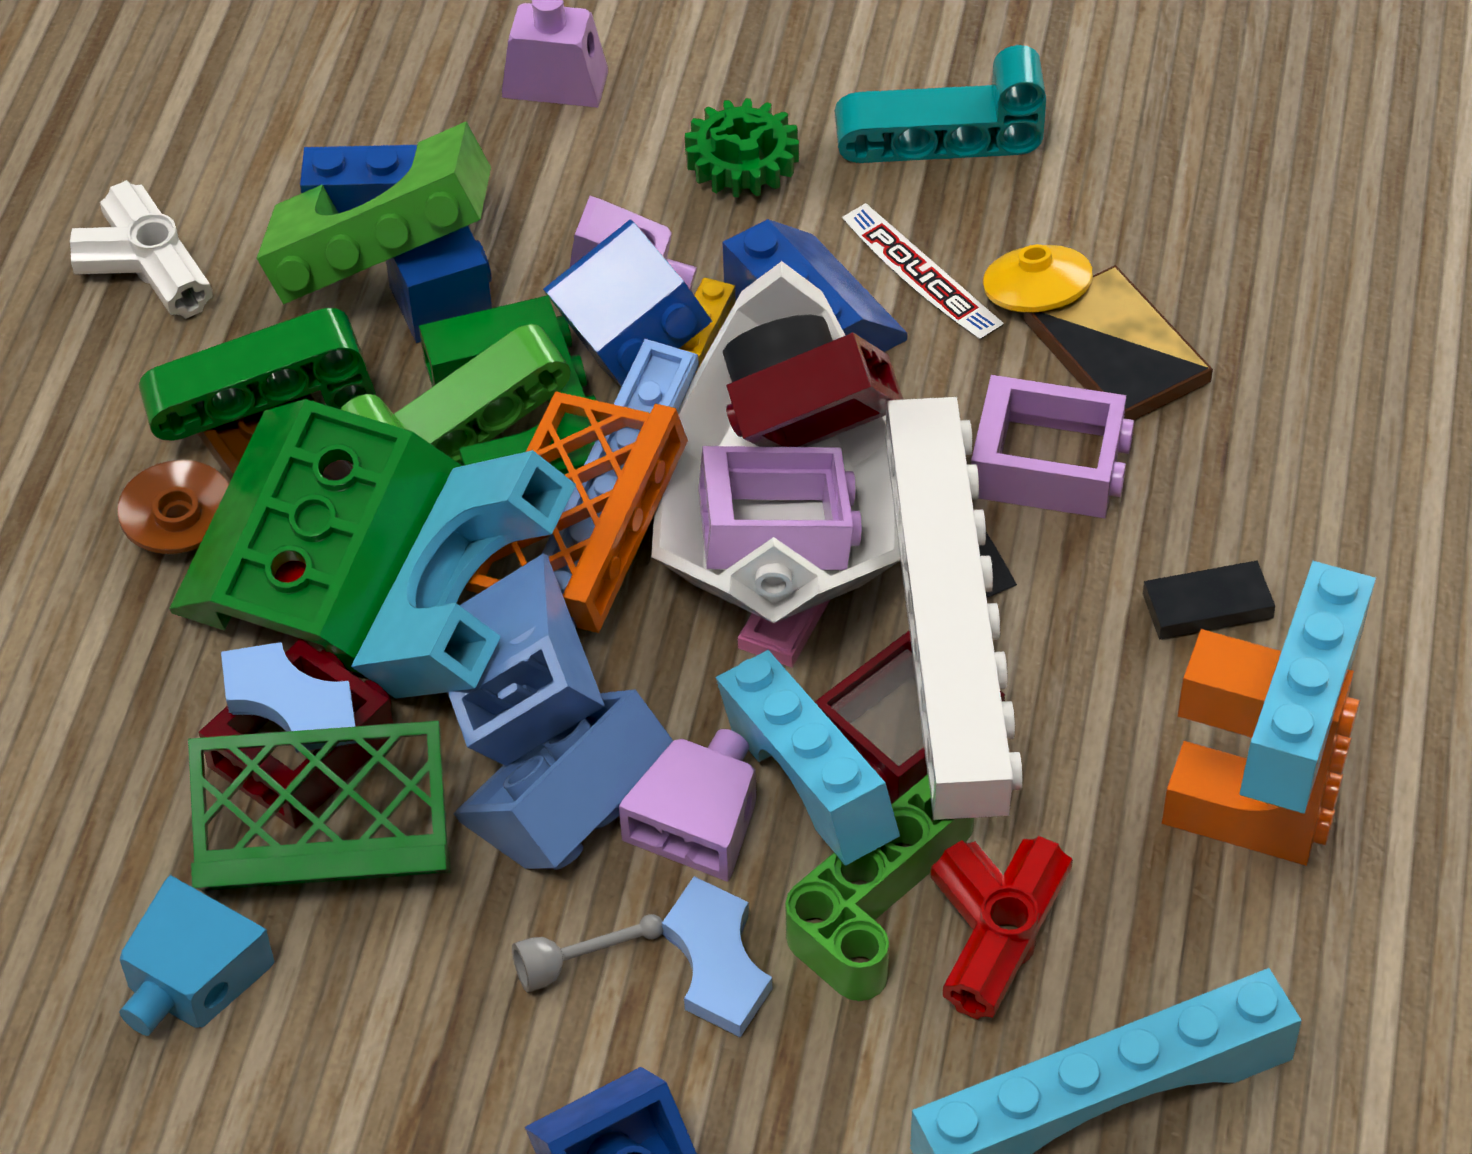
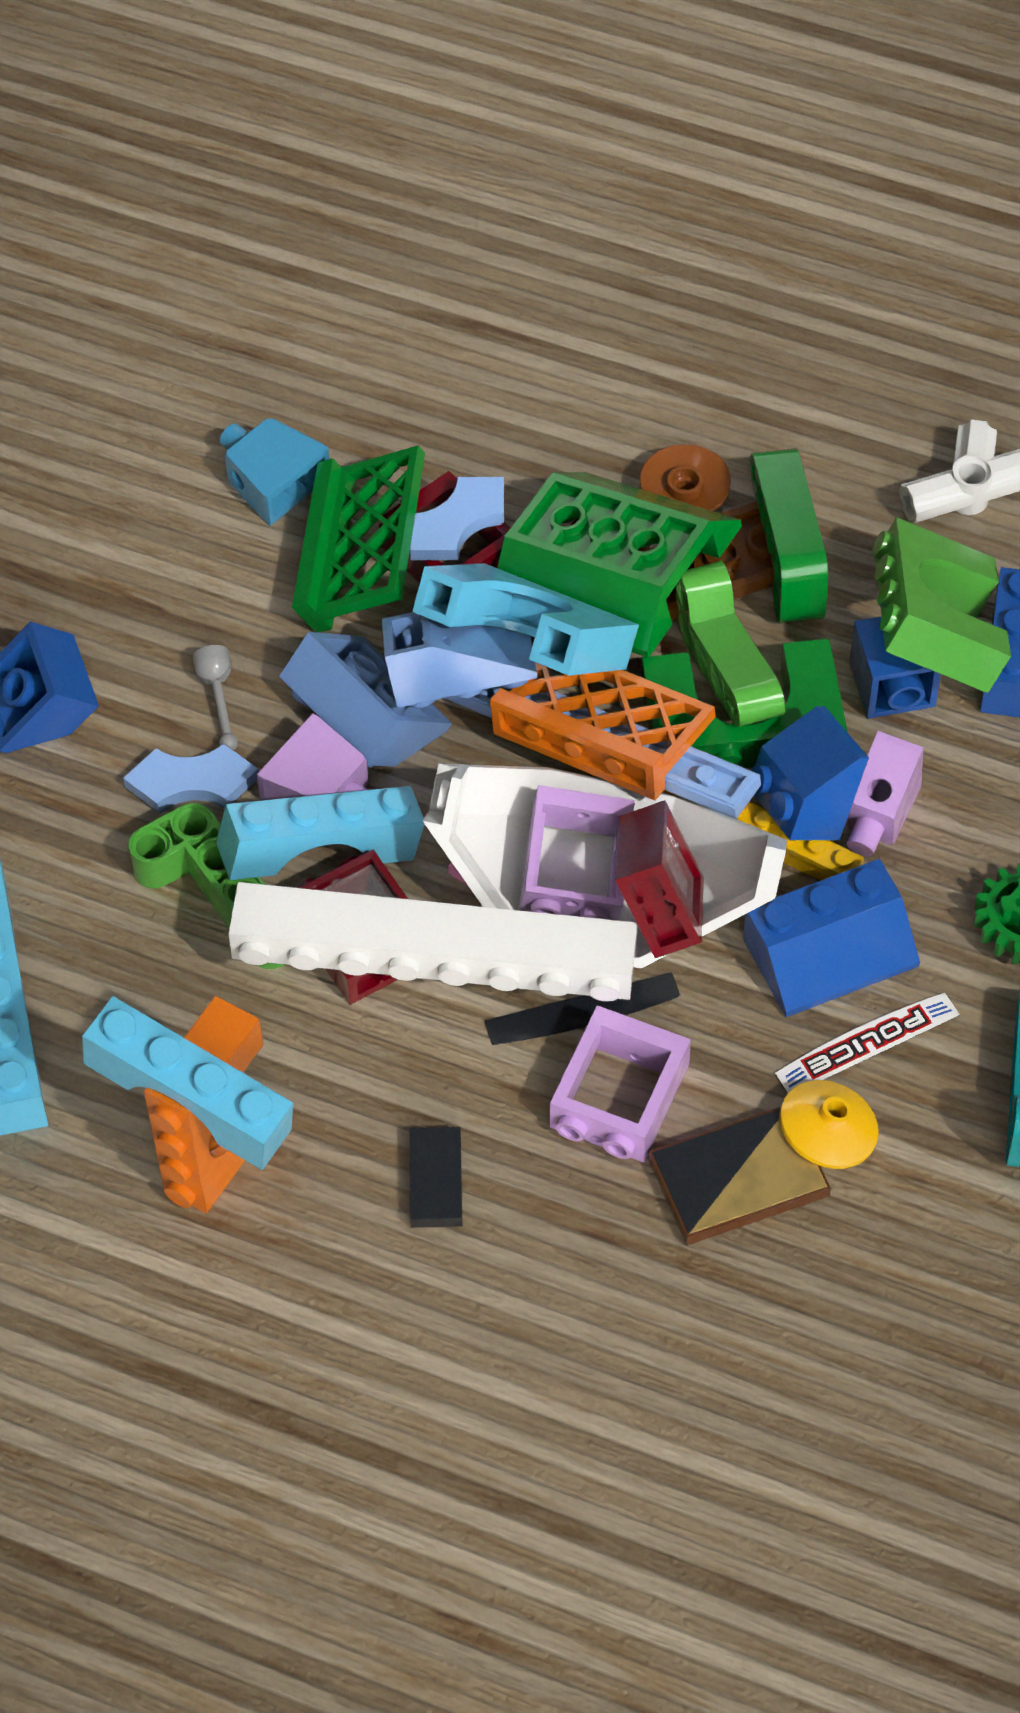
camera: 100 degrees right, 5 degrees up
(774, 343) = (706, 857): black tyre -> none
(994, 899) = (181, 951): red piece -> none

